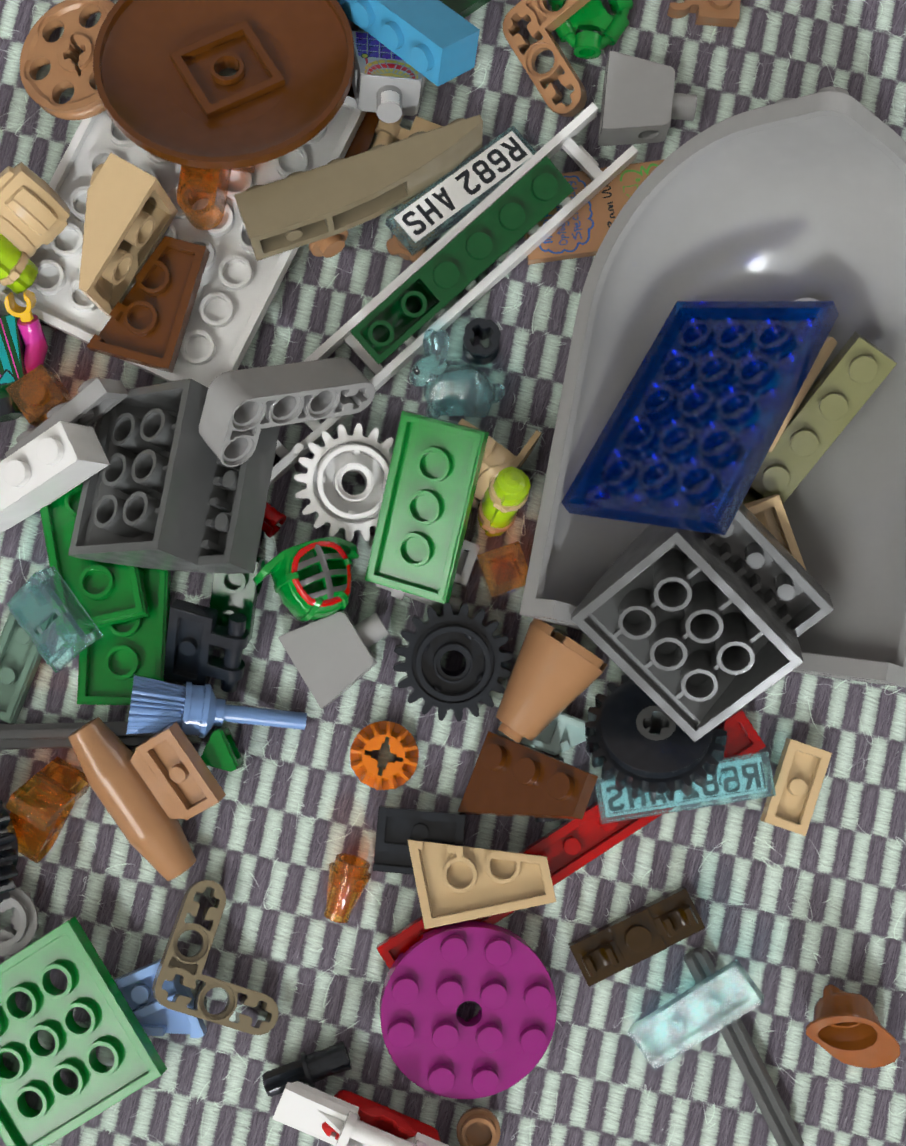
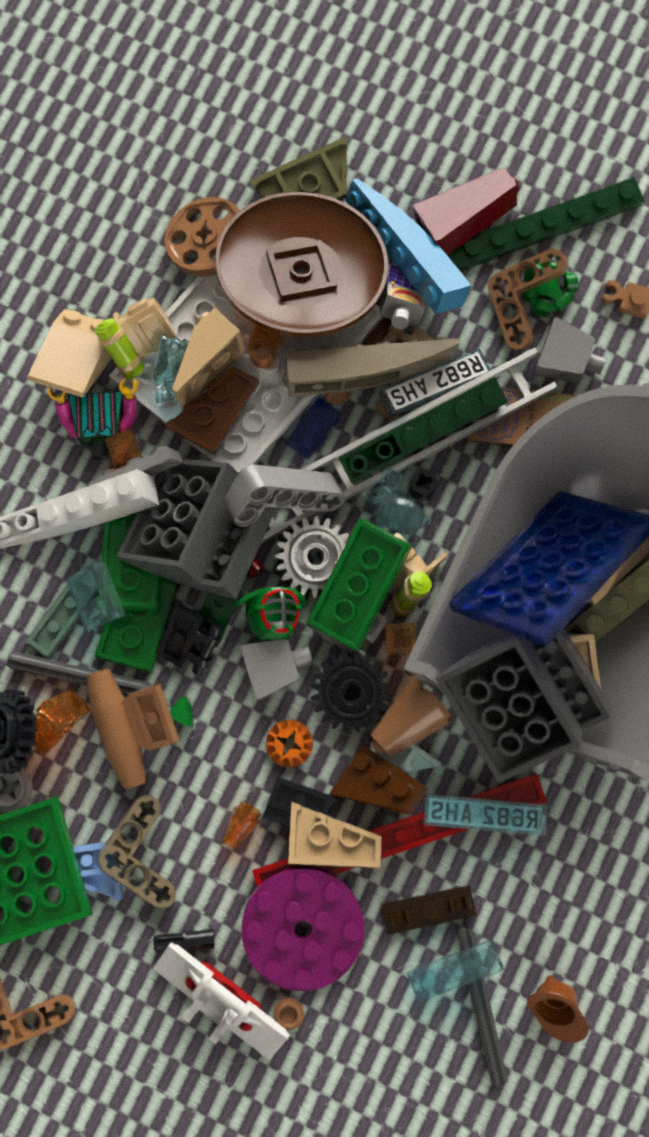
camera: 15 degrees right, 5 degrees down
(64, 253) = (166, 366): none -> clear light blue animal
(195, 709) = (149, 669): medium blue piece -> none
(306, 299) = (313, 428): none -> clear blue tile
(648, 763) = (466, 781): black gear -> none
(796, 786) = (561, 835): tan plate -> none

